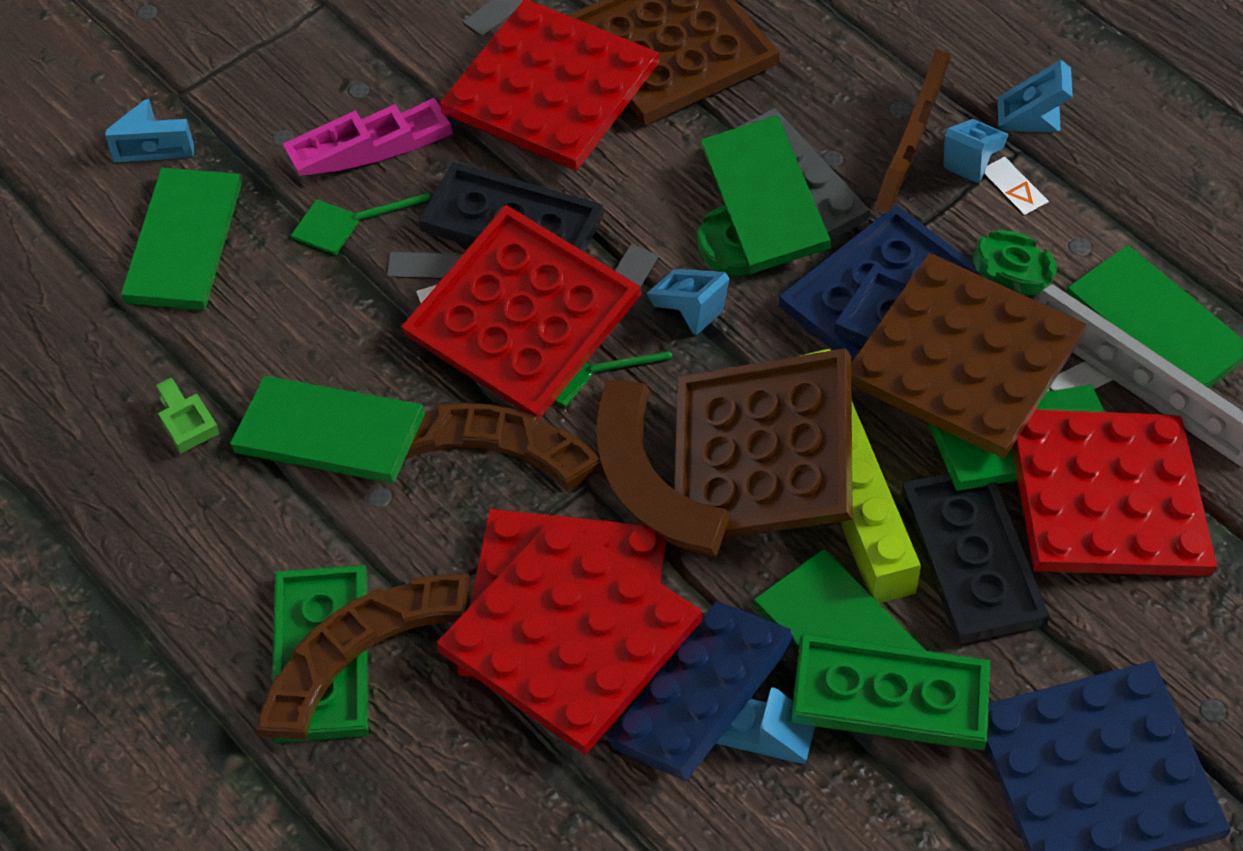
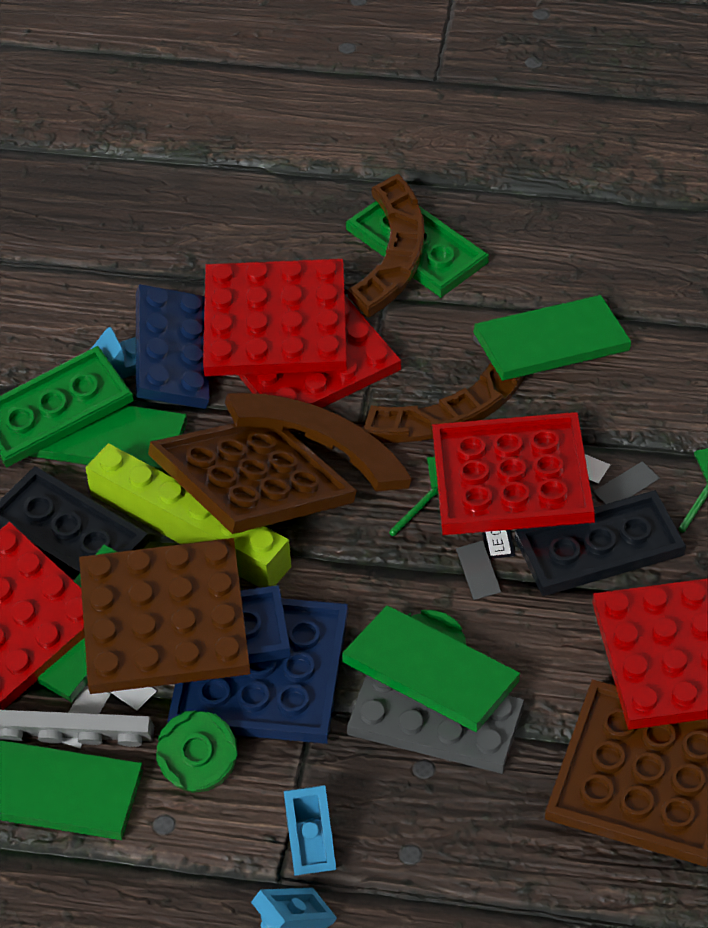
camera: 140 degrees right, 5 degrees down
(184, 419) = (645, 288): bright green plate -> none
(695, 293) = (412, 559): dark azure slope -> none
(914, 131) = (361, 794): reddish brown tile -> none
(1015, 186) = (256, 844): white sticker -> none

